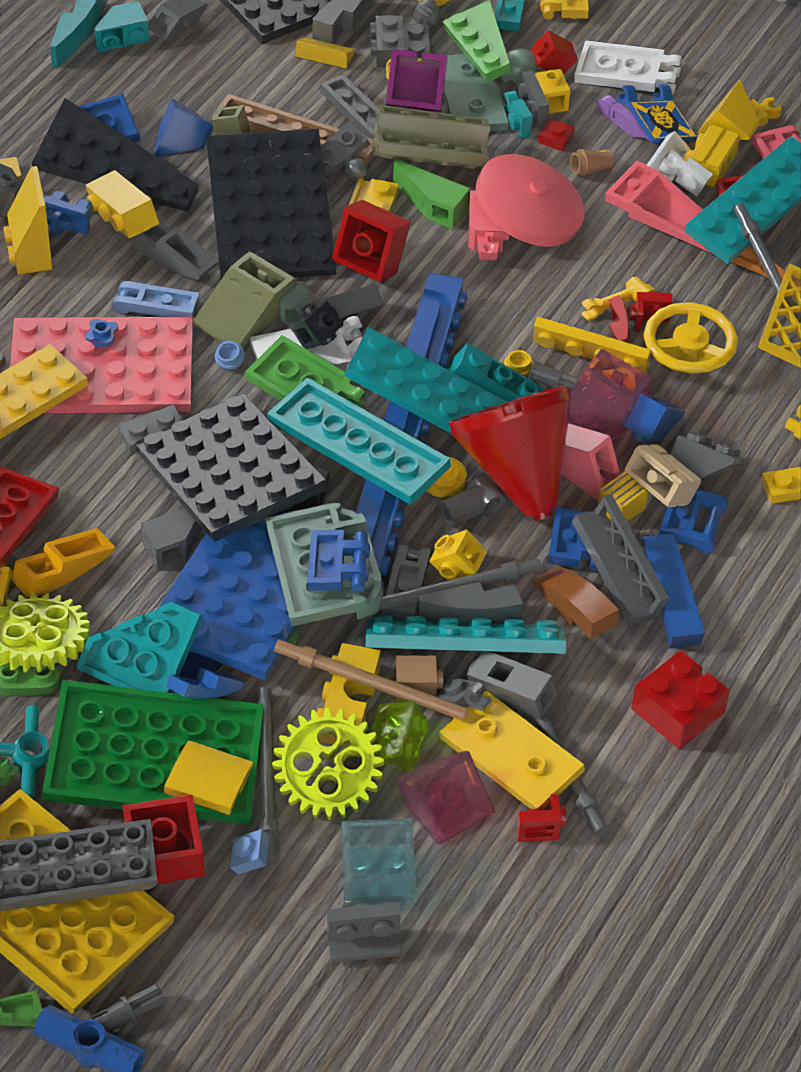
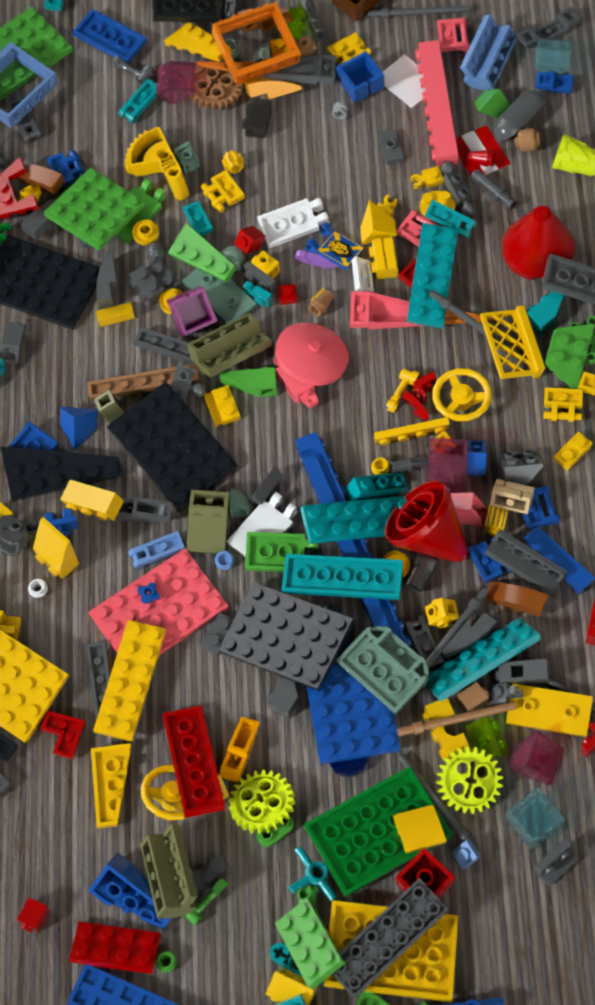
camera: 25 degrees left, 15 degrees up
(128, 1009) = (474, 979): dark grey axle -> none
(143, 649) = (329, 778): teal plate -> none
(207, 685) = (373, 775): blue slope -> none
(316, 324) = (262, 514): black brick -> none
(327, 560) = (392, 668): blue plate -> none
(371, 240) = (249, 438): red piece -> none
(690, 173) = (382, 280): white plate -> none

